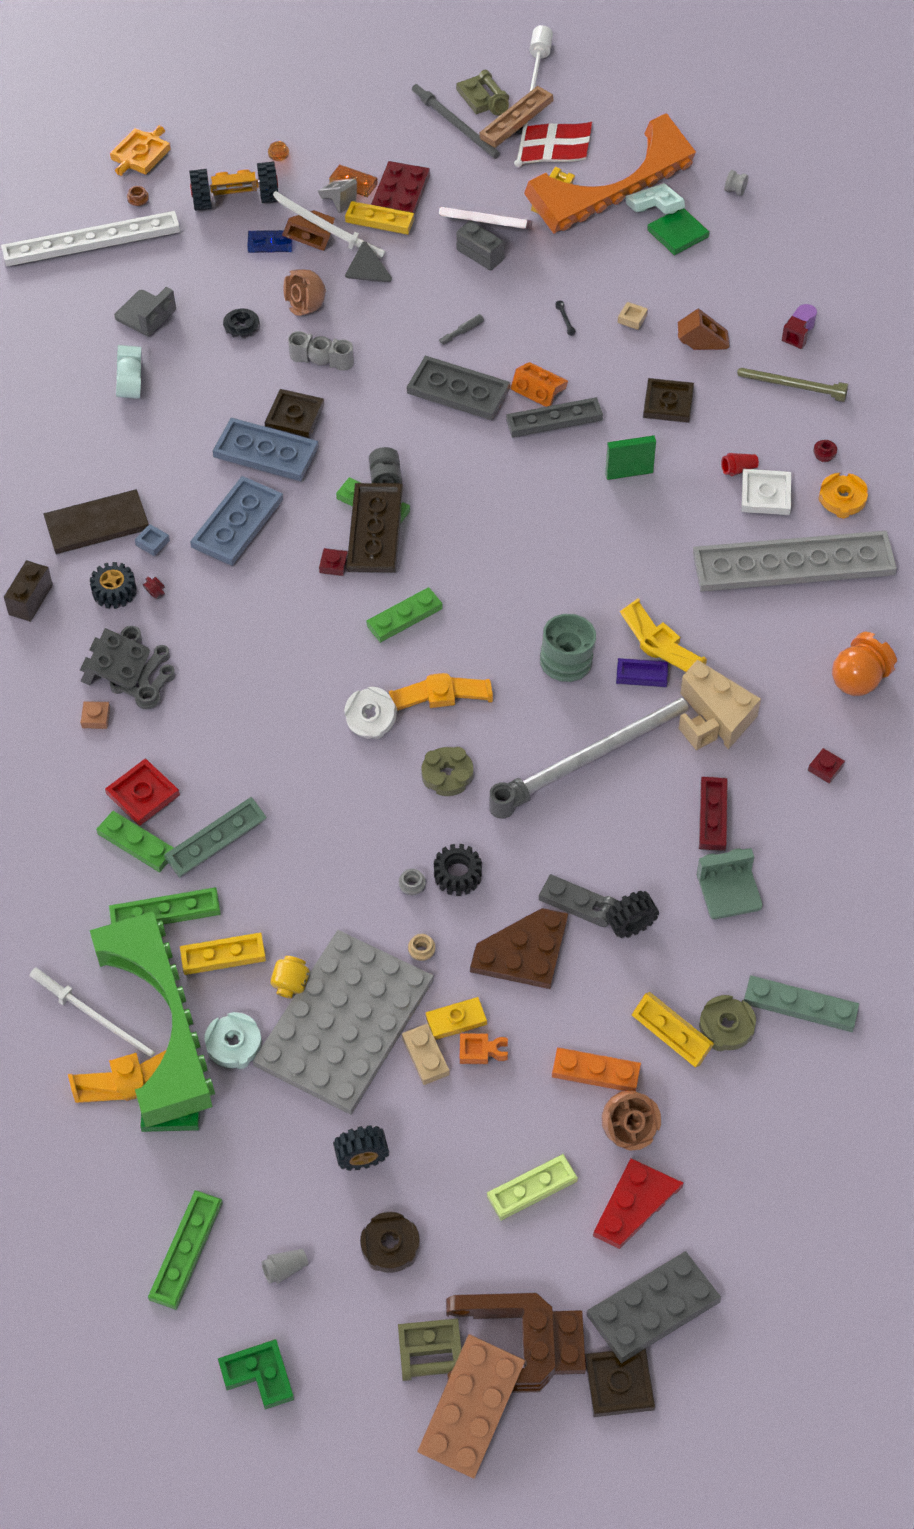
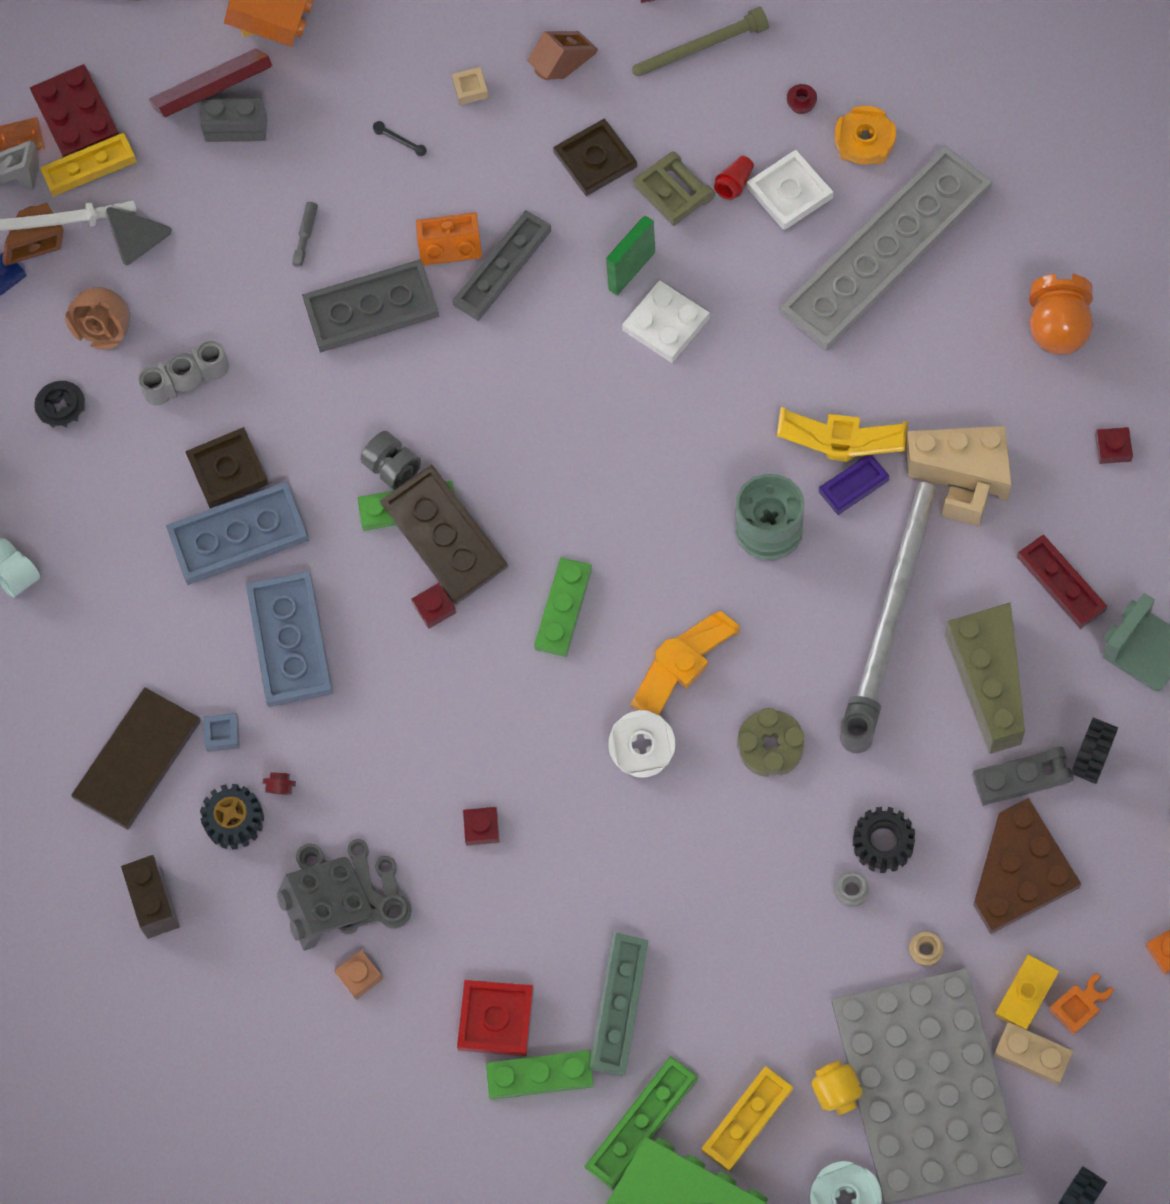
camera: 35 degrees left, 10 degrees up
(240, 691) = (481, 826): none -> dark red plate
(618, 822) = (989, 671): none -> olive wedge
(620, 511) = (665, 321): none -> white plate
(689, 445) = (667, 194): none -> olive plate

